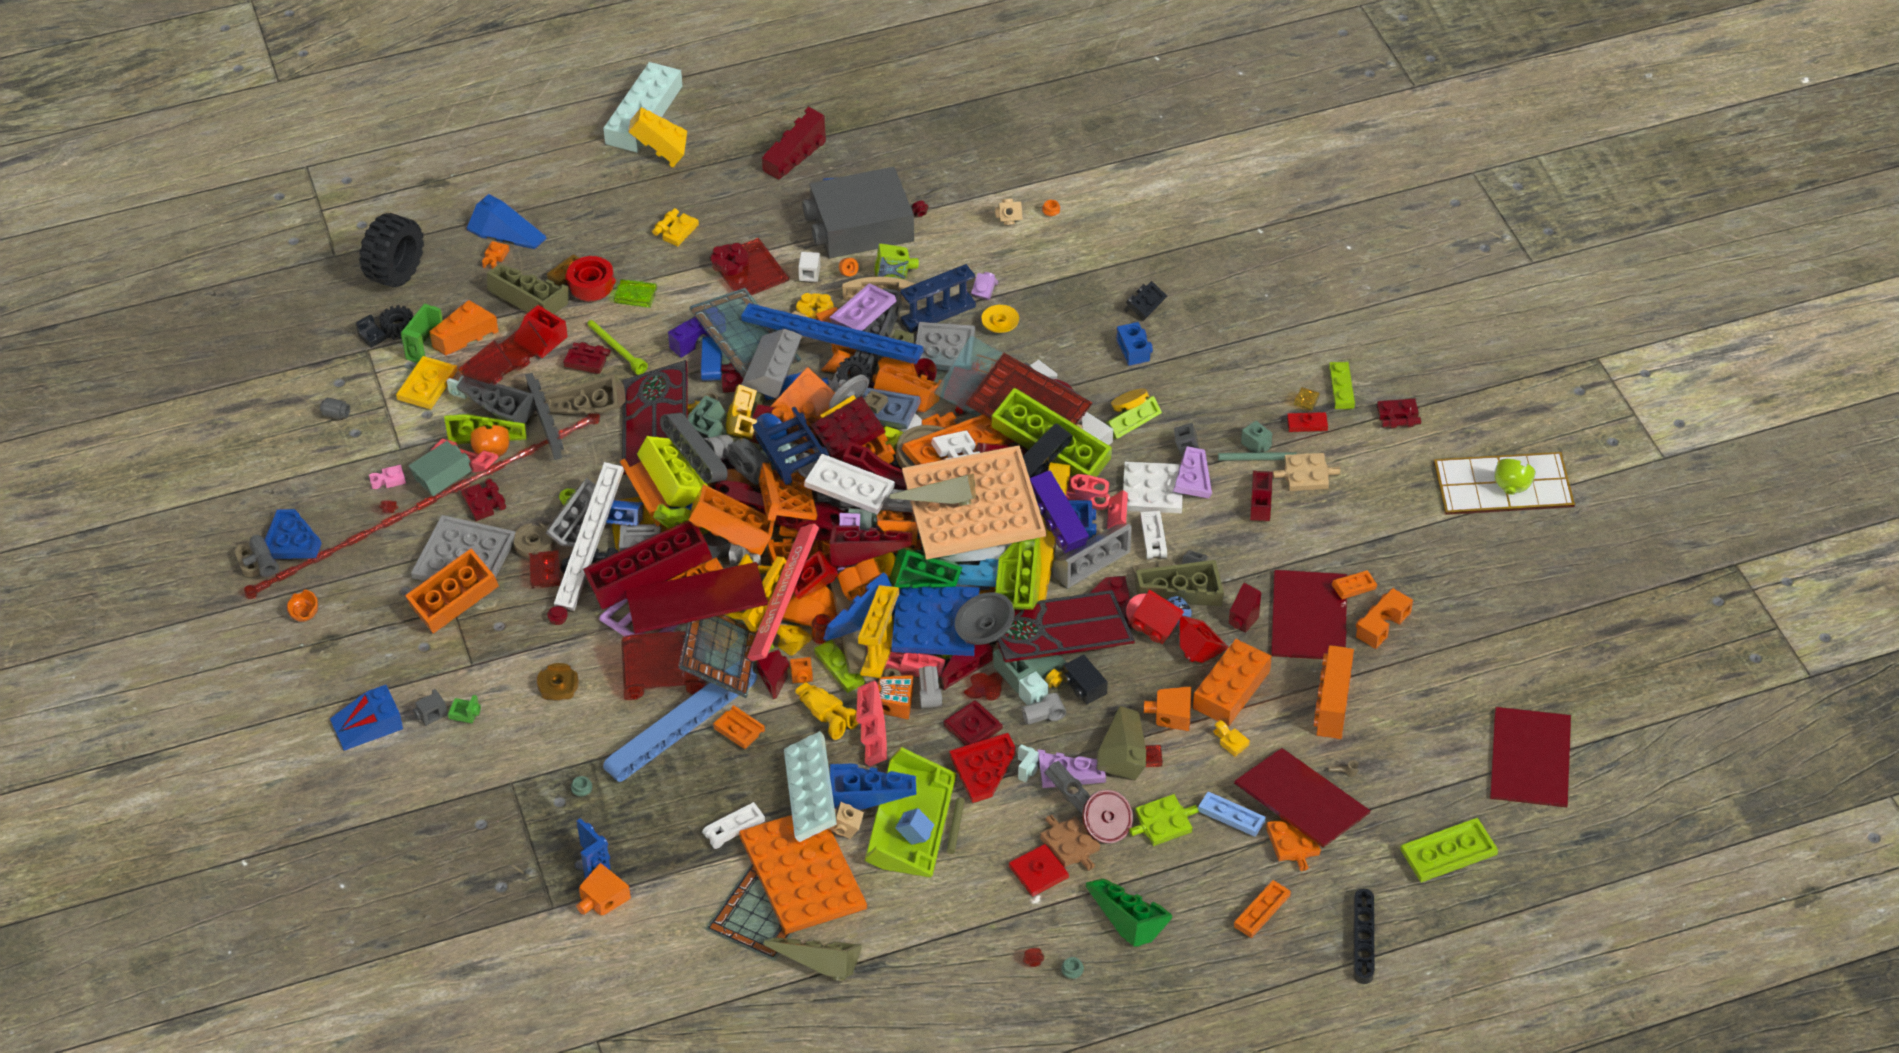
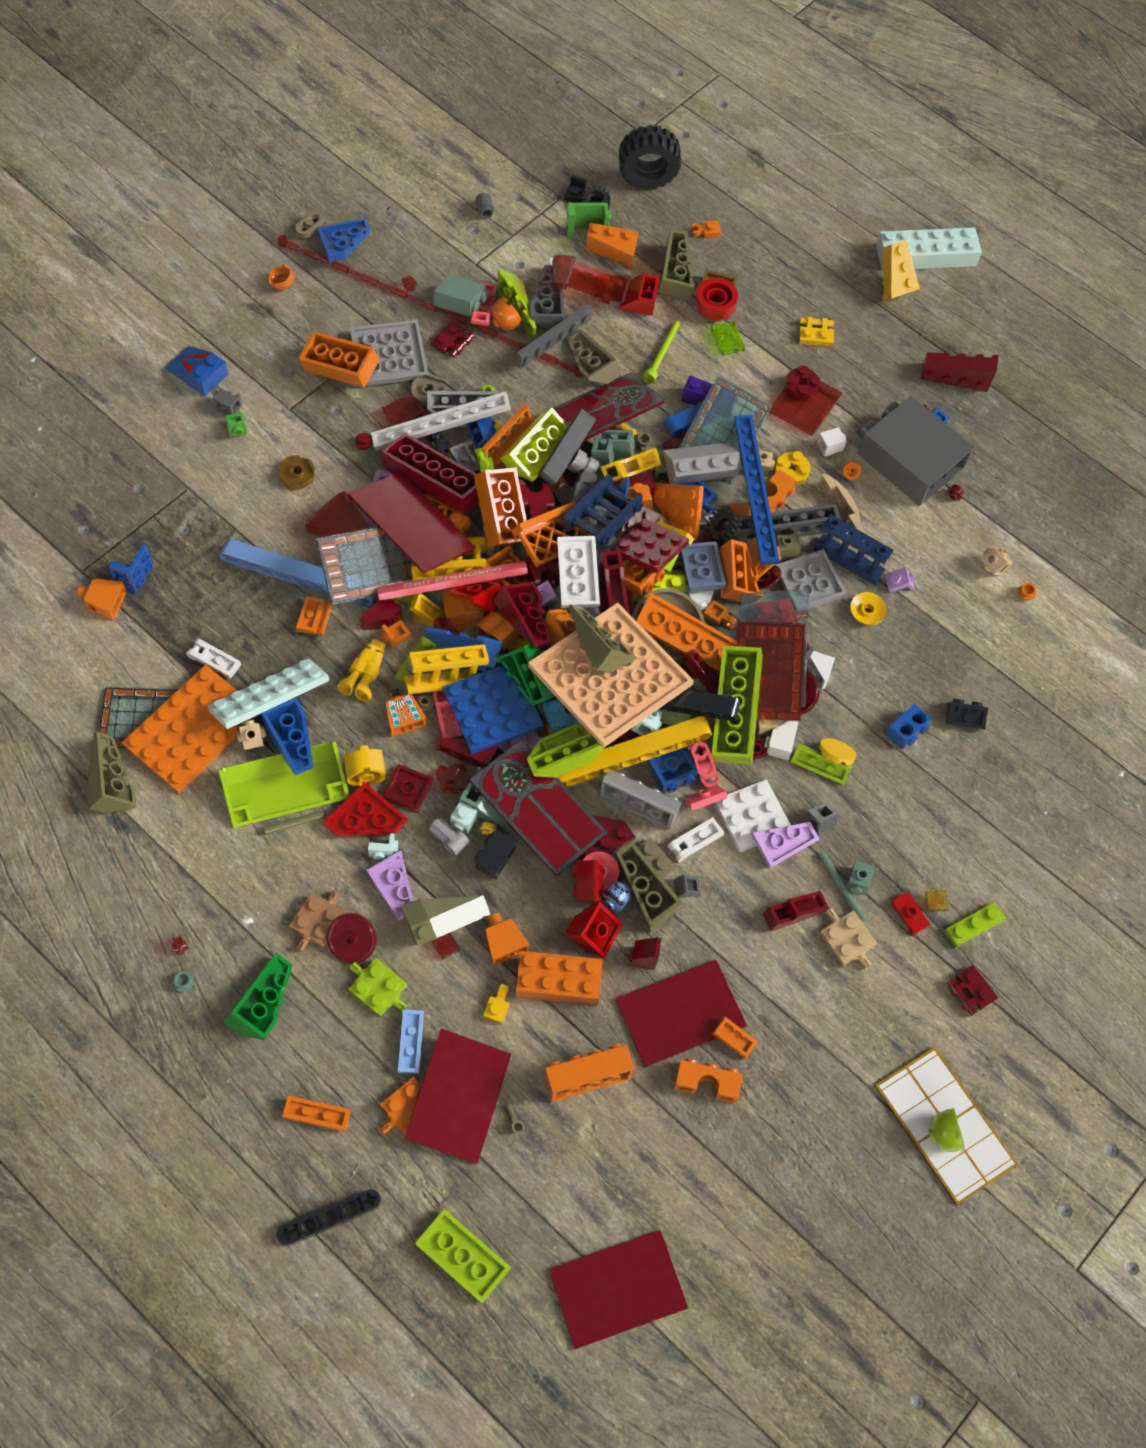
camera: 55 degrees right, 15 degrees up
(262, 555) = (310, 228): dark grey piece -> none
(390, 476) = (439, 271): bright pink plate -> none
(426, 382) = (542, 247): yellow plate -> none
(499, 221) = (738, 217): blue wedge -> none
(581, 786) = (202, 536): sand green plate -> none
(586, 357) = (632, 337): dark red plate -> none
(854, 386) = (697, 530): light grey shield -> none
(863, 308) = (798, 498): lavender plate -> none
(872, 723) = (367, 706): coral slope -> none
(876, 401) = (697, 553): dark tan plate -> none
(893, 262) = (875, 499): lime torso -> none
(915, 826) = (265, 790): medium blue brick -> none
(930, 692) = (419, 739): light grey piece -> none
(936, 740) = (364, 766): none -> yellow brick
(954, 443) = (676, 631): white plate -> none
(984, 618) = (497, 742): dark grey dish -> none
(1038, 870) = (276, 908): red plate -> none
(1058, 513) = (649, 745): dark purple brick -> none
(1063, 780) = (371, 884): dark grey piece -> none

